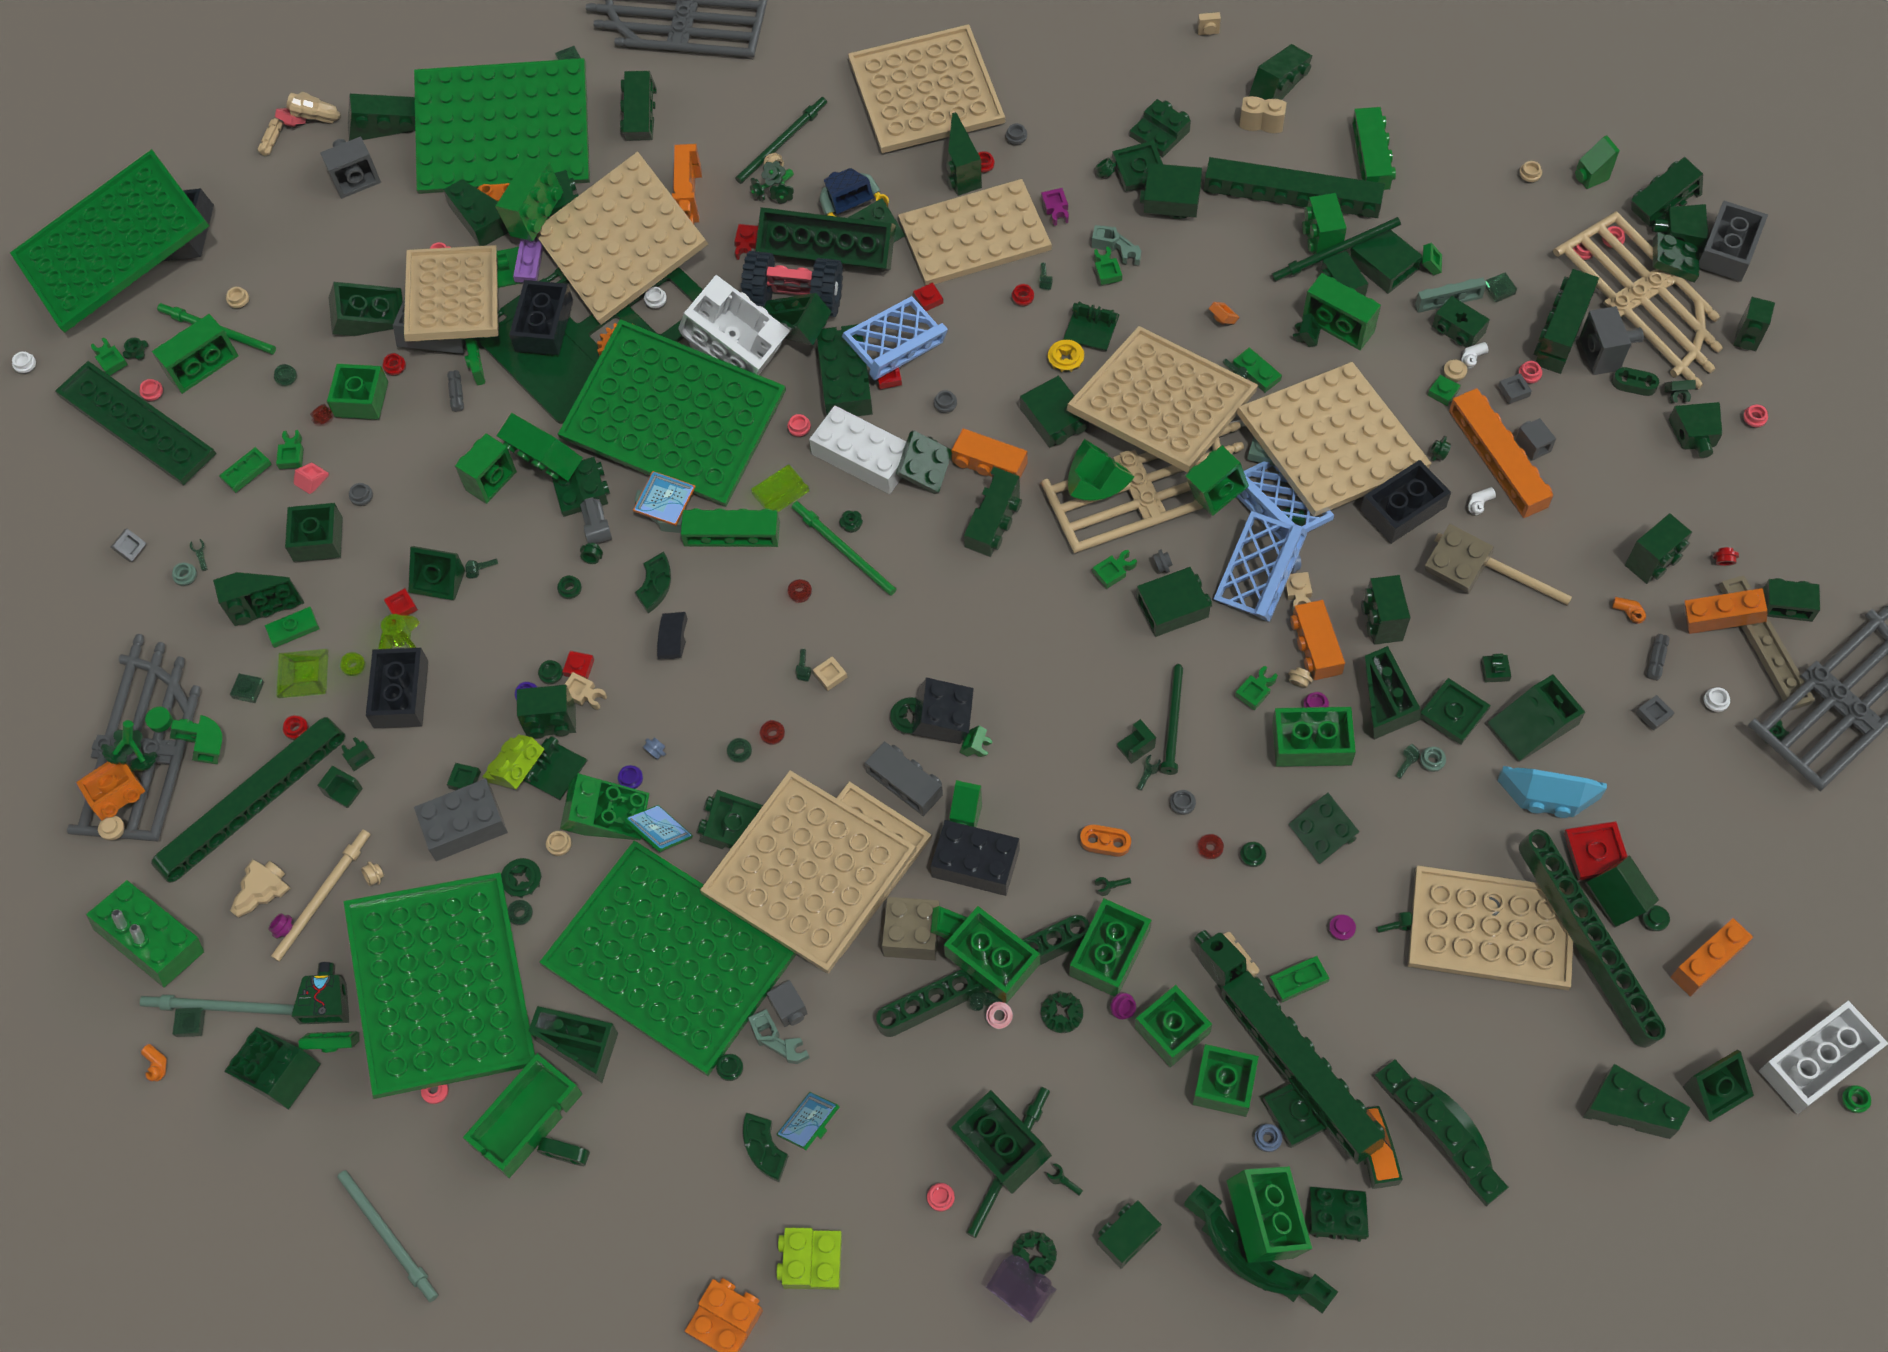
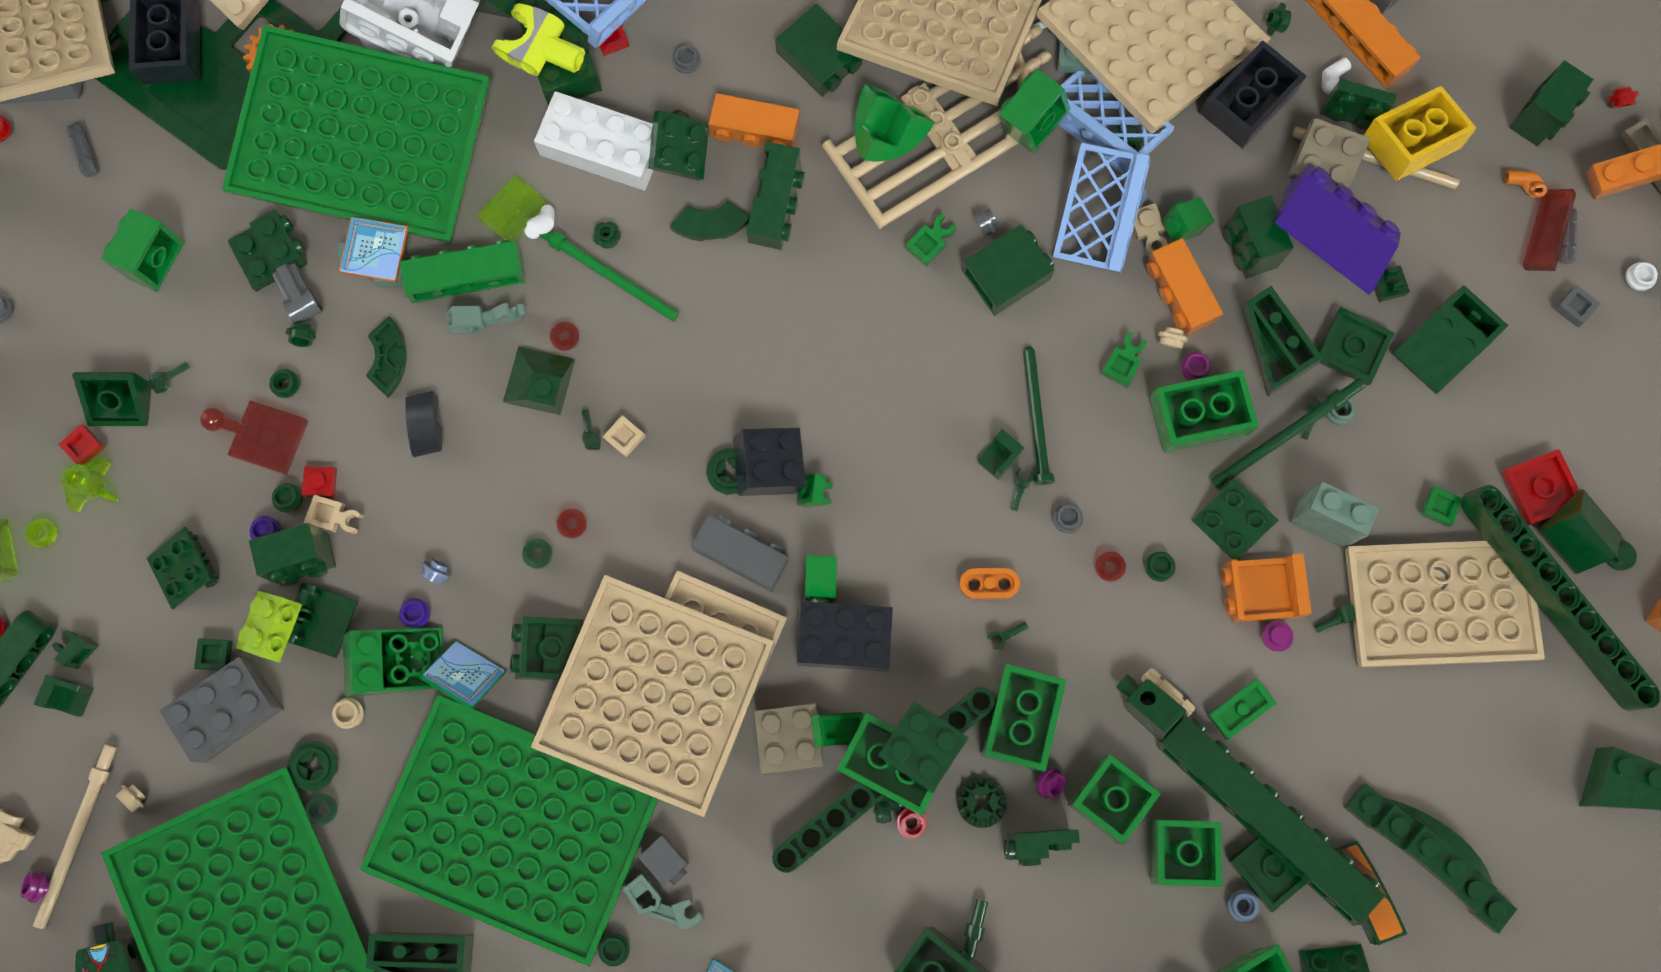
camera: 15 degrees left, 15 degrees up
(397, 688) = (102, 557): black brick -> none
(454, 708) = (181, 567): none -> dark green hinge
(474, 362) = (96, 108): green plate -> none
(539, 447) = (202, 213): green brick -> none
(543, 624) = (263, 437): none -> clear red plate
(729, 564) = (474, 319): none -> sand green piece
(771, 621) = (539, 380): none -> dark green slope
(799, 425) = (516, 122): coral plate -> none
(800, 502) = (541, 223): none -> white arm
(830, 366) = (539, 43): none -> neon yellow connector
(936, 527) = (710, 224): none -> dark green tile
(1016, 935) = (923, 747): none -> dark green brick
(1095, 1044) = (1035, 845): none -> dark green plate
(1331, 587) = (1187, 219): none -> green brick
(1339, 888) = (1266, 589): none -> orange panel
(1406, 834) = (1334, 515): none -> sand green brick
(1427, 747) = (1335, 400): none -> dark green bar
(1453, 610) = (1338, 227): none -> dark purple slope
(1492, 522) = (1356, 103): none -> dark green plate
(1504, 850) = (1441, 506): none -> green plate
(1539, 552) = (1419, 133): none -> yellow brick
(1550, 791) = (1478, 427): medium azure wedge -> none
(1641, 649) = (1549, 230): none -> clear red tile

